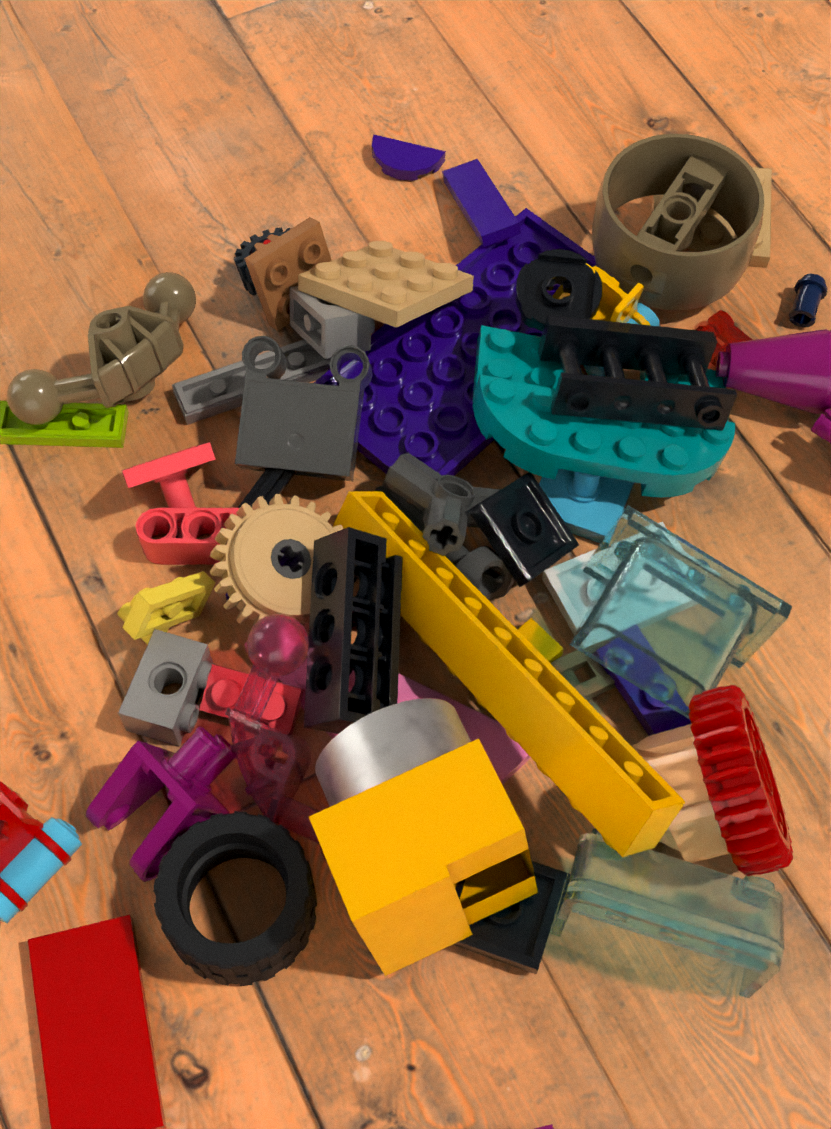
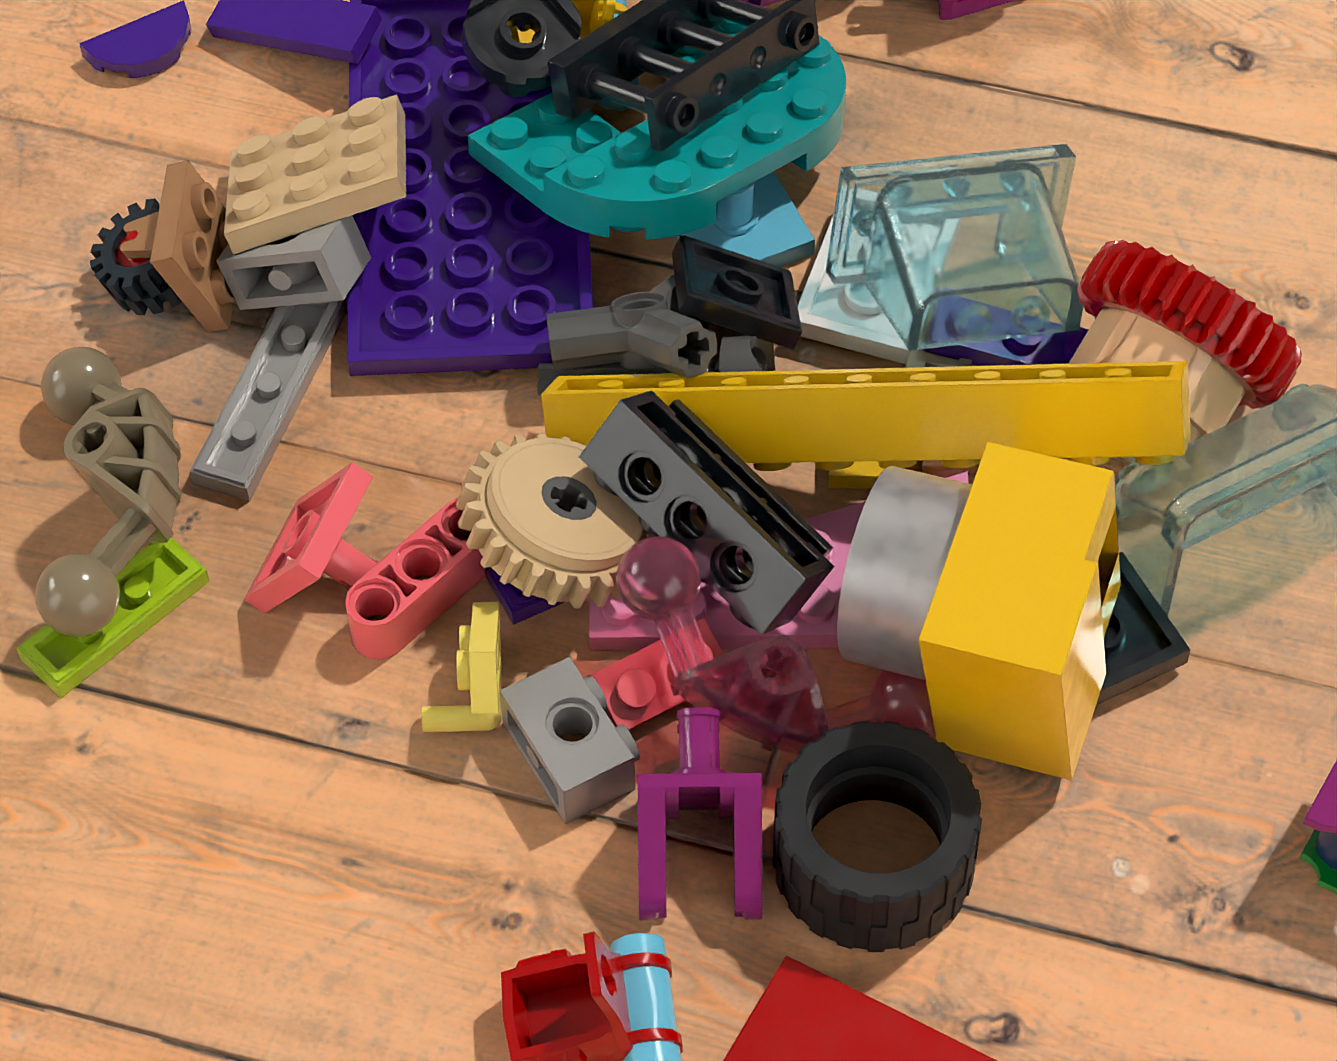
camera: 45 degrees left, 5 degrees down
(298, 425) = (401, 383): dark grey piece -> none

